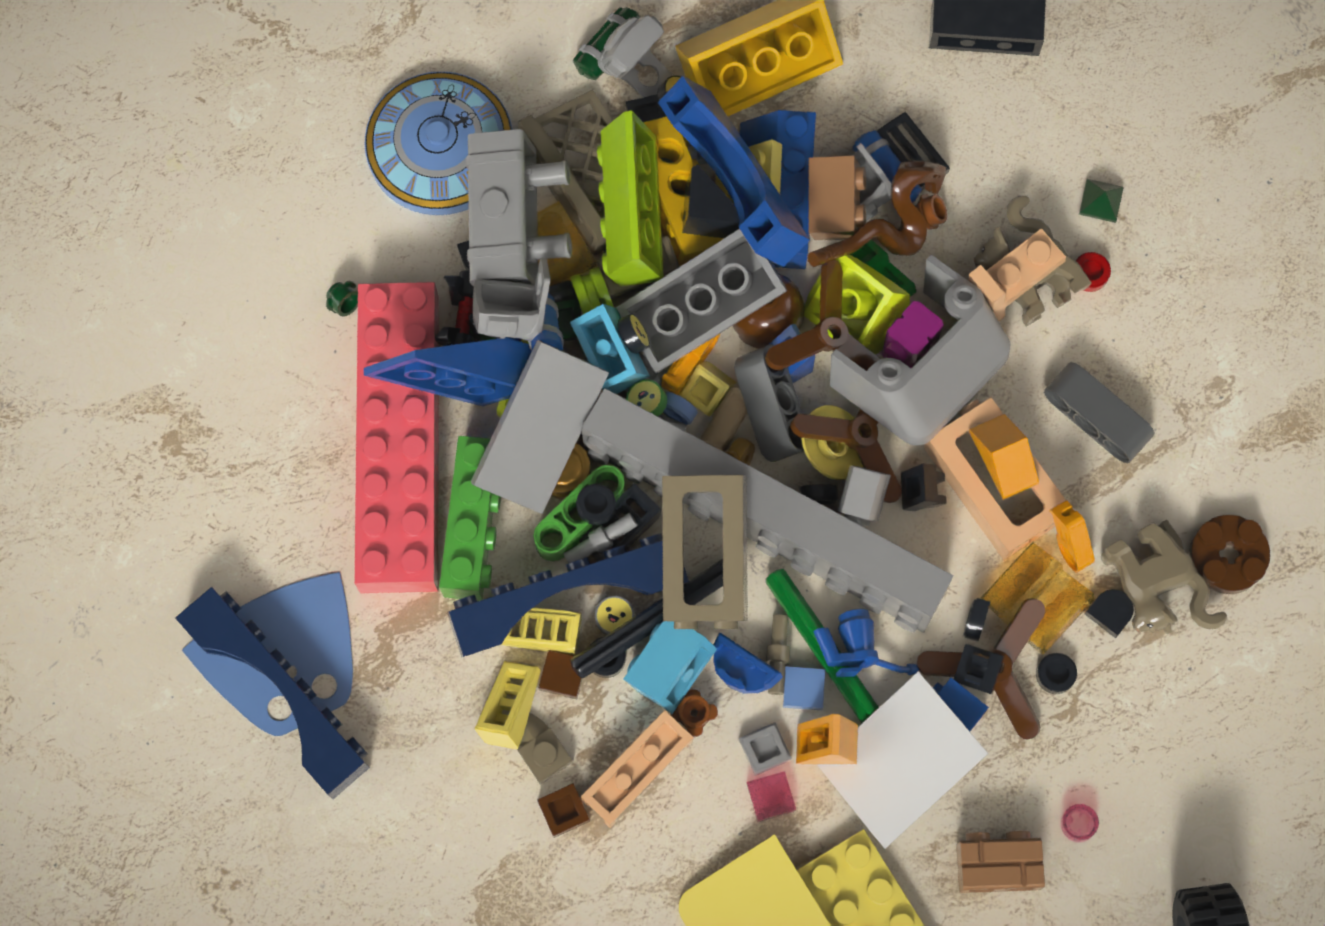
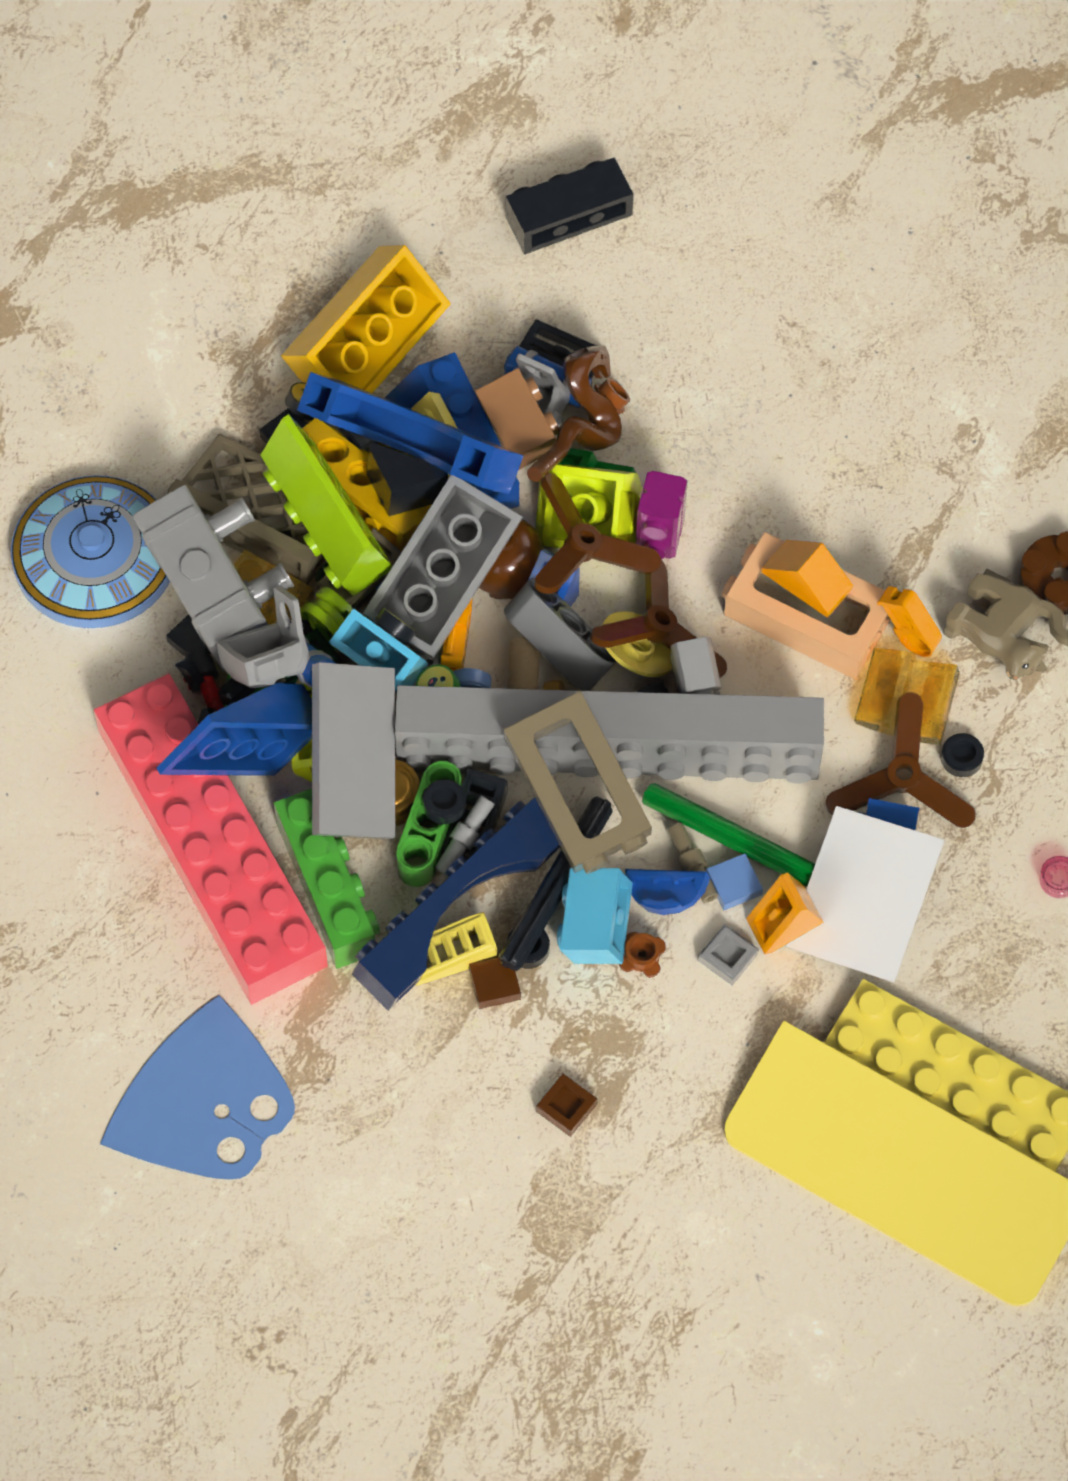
camera: 30 degrees left, 10 degrees down
(325, 752) = (136, 1101): dark blue arch -> none
(342, 298) = (79, 737): dark green plate -> none
(508, 729) = (467, 1057): light yellow slope -> none
(542, 750) = (508, 1059): dark tan plate -> none
(613, 613) = (512, 902): light yellow tile -> none
(620, 47) = (229, 379): light grey piece -> none
(637, 768) = (618, 1026): light nougat container -> none
(707, 388) = (488, 654): light yellow slope -> none
(771, 796) = (758, 994): clear pink tile -> none
(858, 637) = (760, 808): blue piece -> none
(920, 487) = (743, 647): black tile -> none
(926, 397) = (703, 558): light grey windscreen -> none
(976, 619) = (861, 739): black tile -> none
(979, 668) = (890, 779): black tile -> none
(1000, 863) = (1007, 946): medium nougat brick -> none
(1017, 271) = (723, 416): light nougat bracket -> none
(1061, 280) = (742, 398): dark tan animal -> none
(1096, 268) = (791, 384): red tile -> none
(1099, 412) = (870, 503): dark grey beam -> none
(1101, 200) = (765, 317): dark green slope -> none
(1111, 611) = (982, 675): black tile -> none

